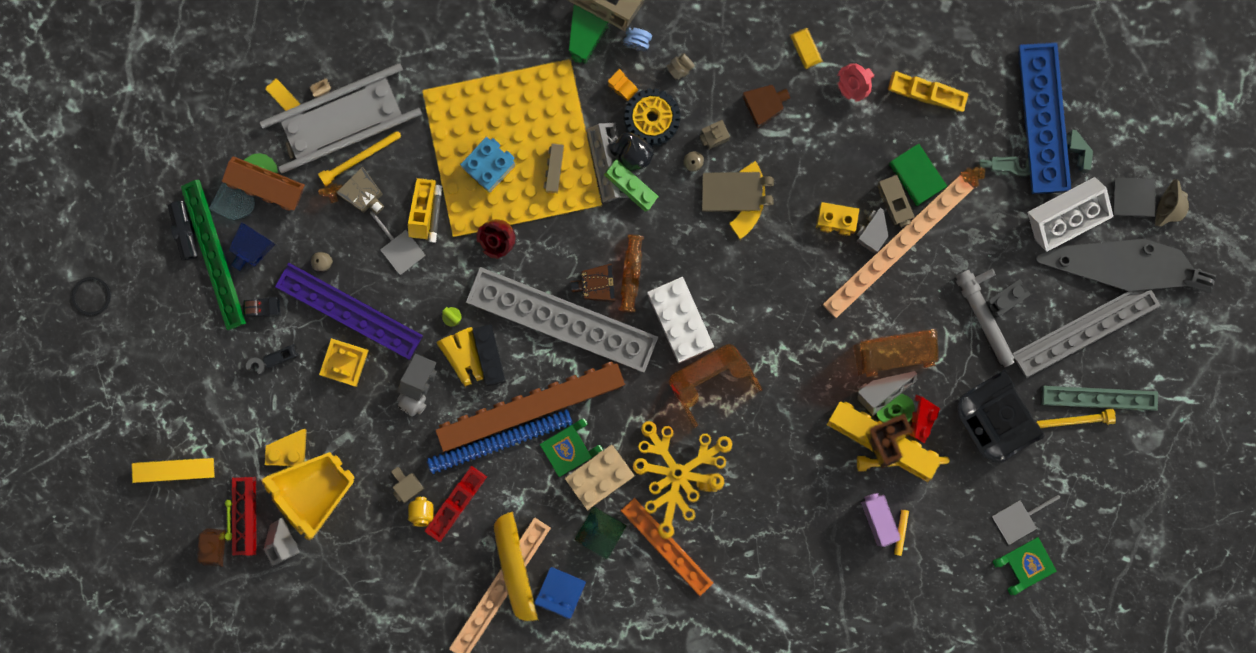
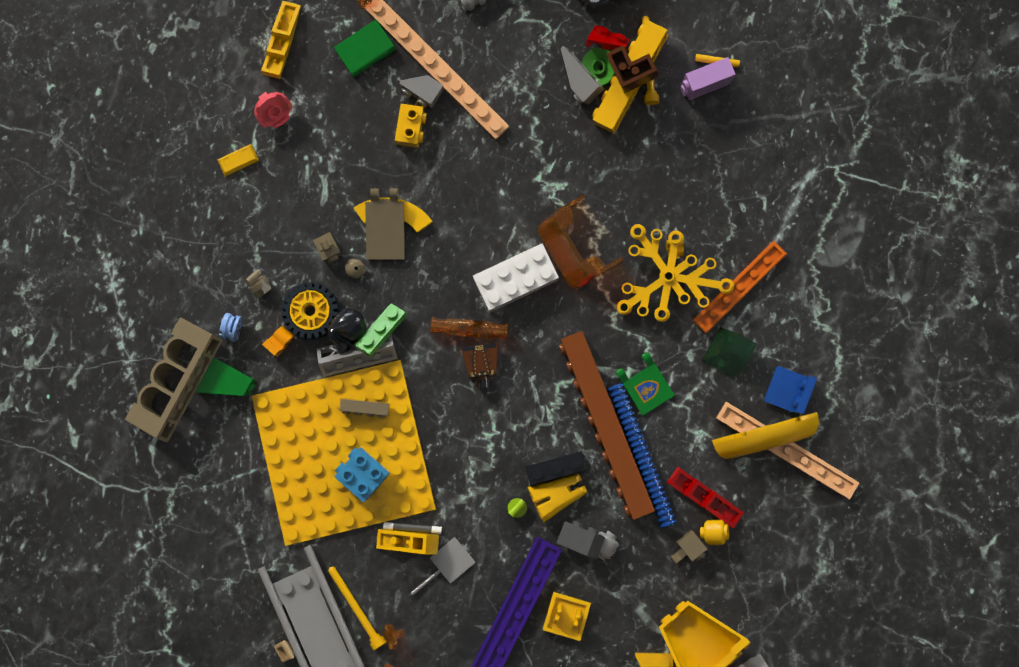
camera: 85 degrees left, 0 degrees up
(321, 261) = (464, 643): dark tan piece -> none
(362, 192) = (392, 603): dark tan torso -> none
(496, 238) = (437, 464): dark red cylinder -> none
(562, 319) = (517, 396): light grey plate -> none
(599, 477) = (674, 354): tan brick -> none
(765, 103) = (295, 199): reddish brown torso -> none
(895, 201) = (392, 69): dark tan brick -> none
(896, 352) = (544, 64): clear orange windscreen -> none

